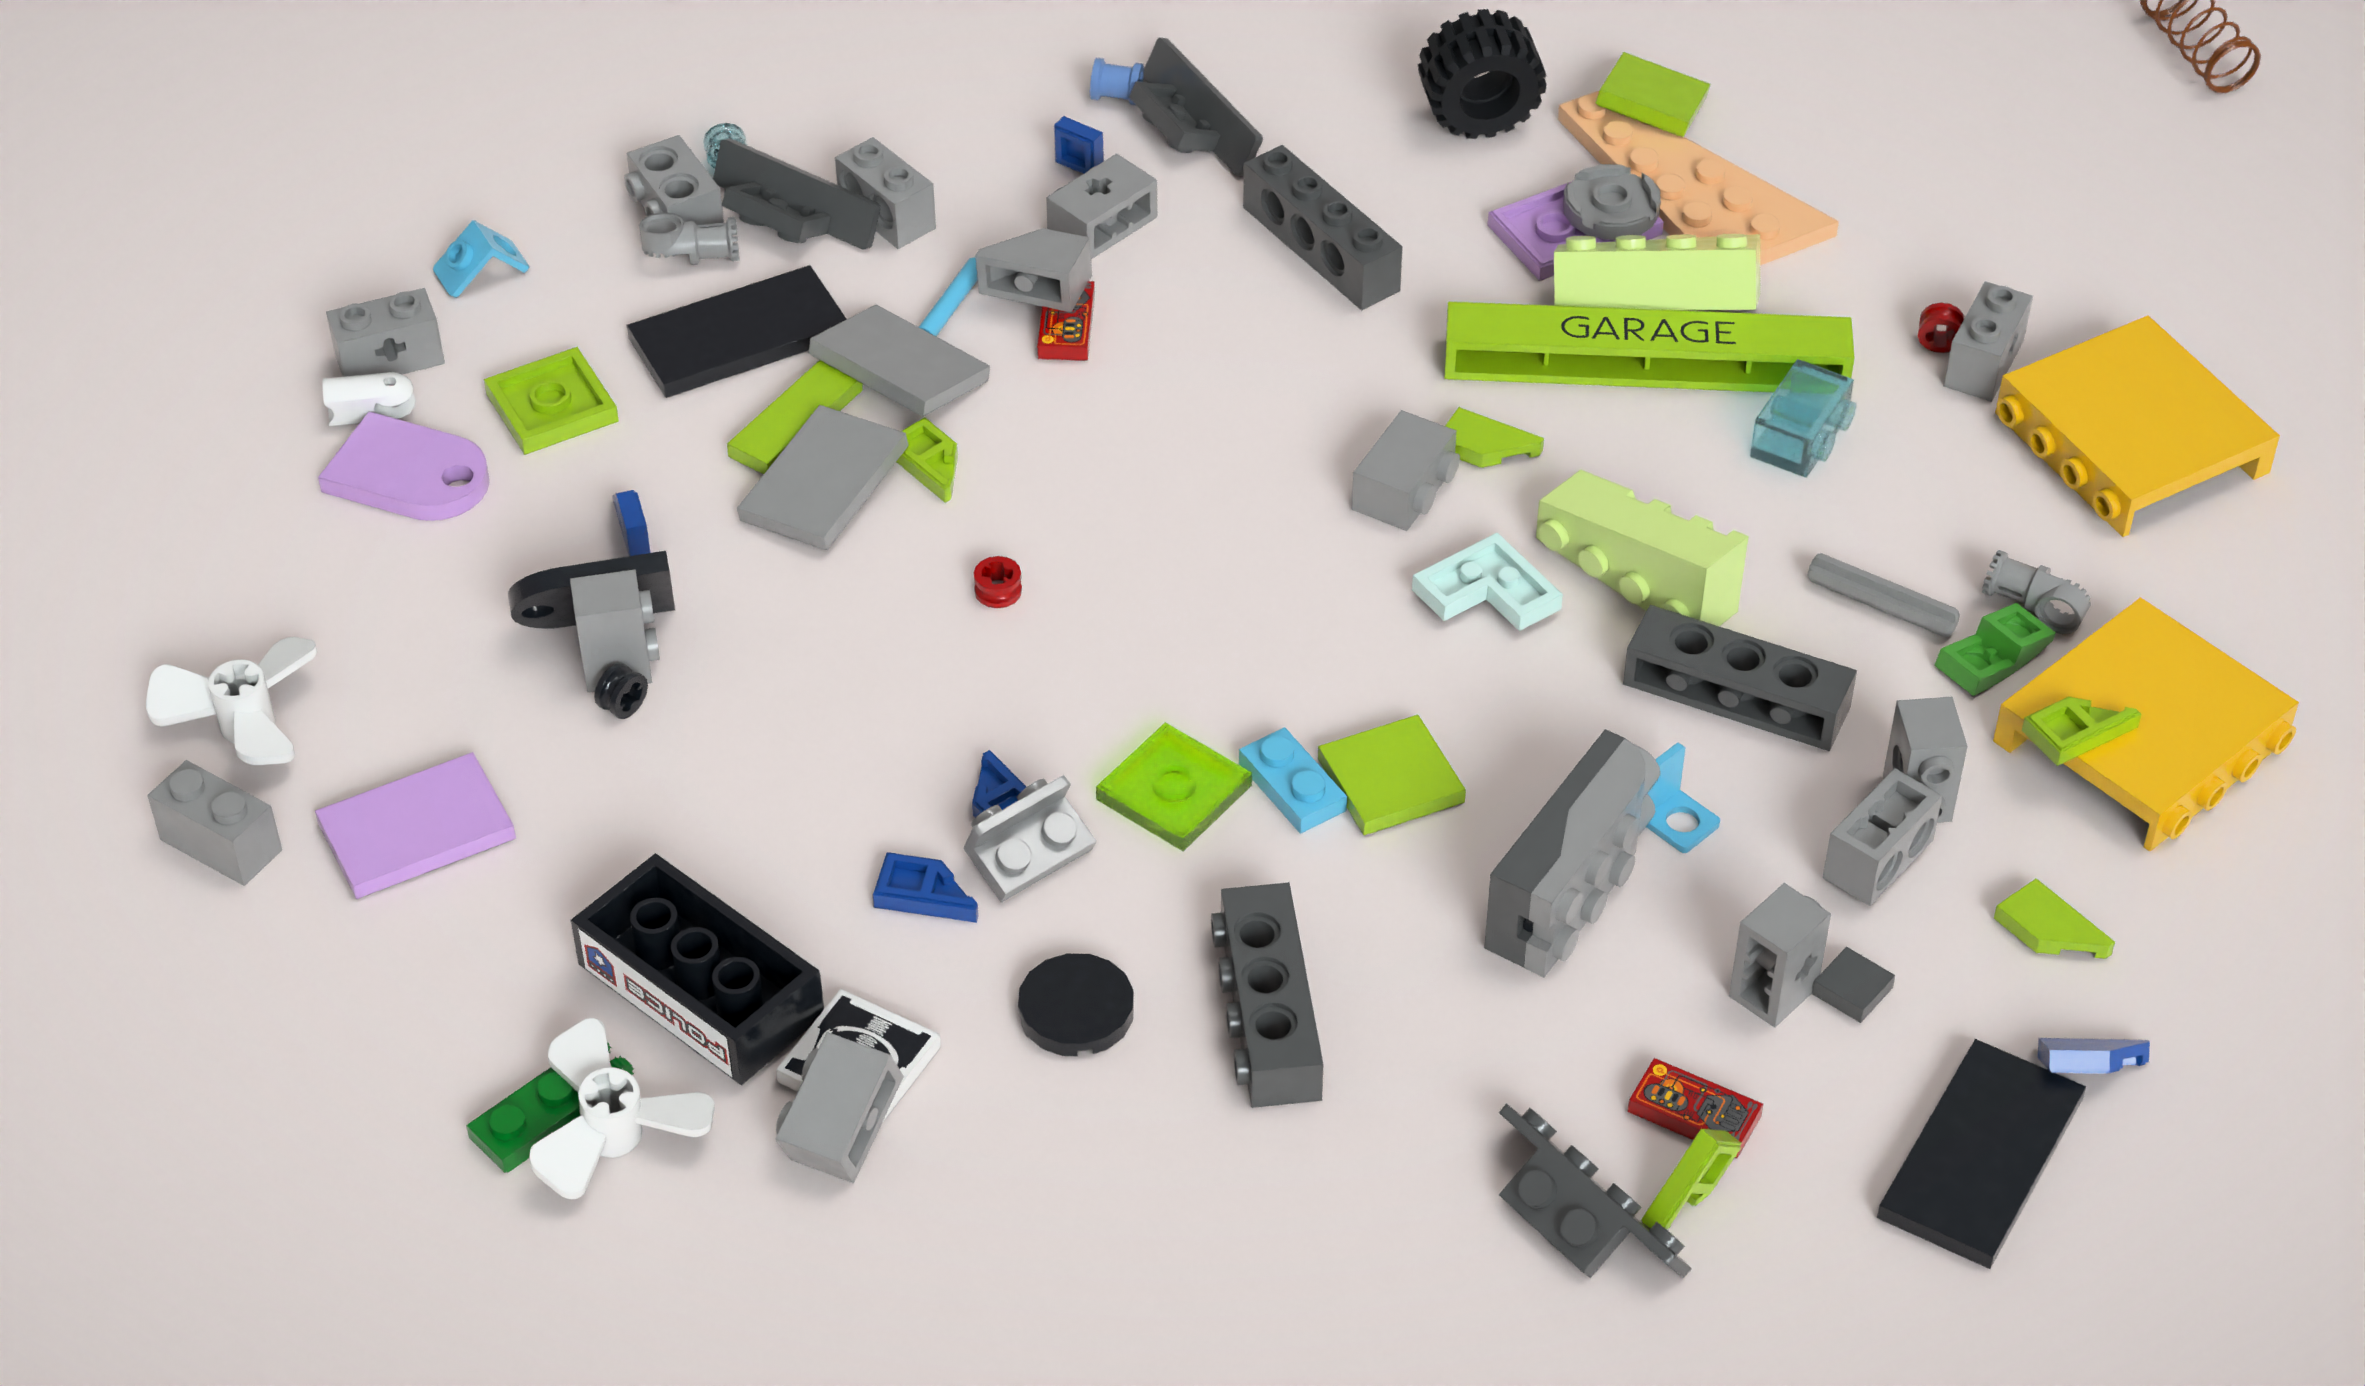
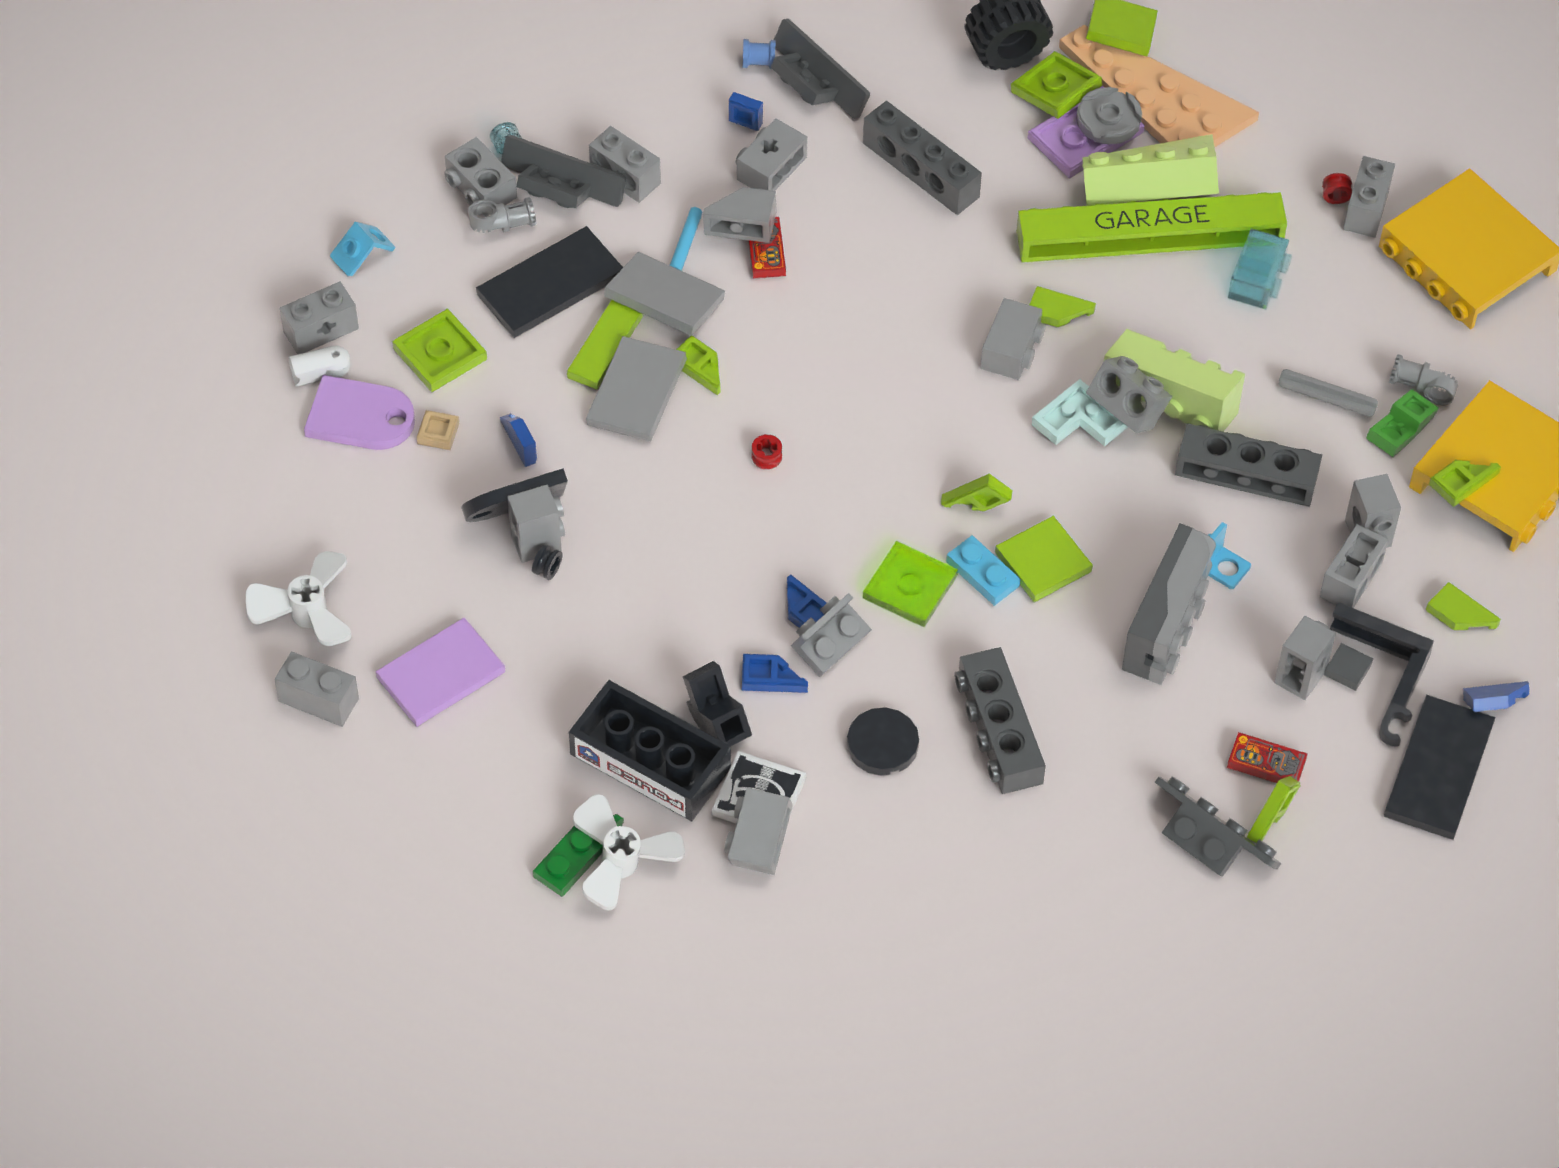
camera: 10 degrees left, 10 degrees up
(515, 502) = (437, 430): none -> tan tile
(815, 914) = (714, 707): none -> black brick
(1309, 670) = (980, 493): none -> lime tile
(1540, 158) = (1056, 84): none -> lime tile
(1561, 561) = (1126, 400): none -> light grey brick
(1931, 951) = (1394, 641): none -> black hinge

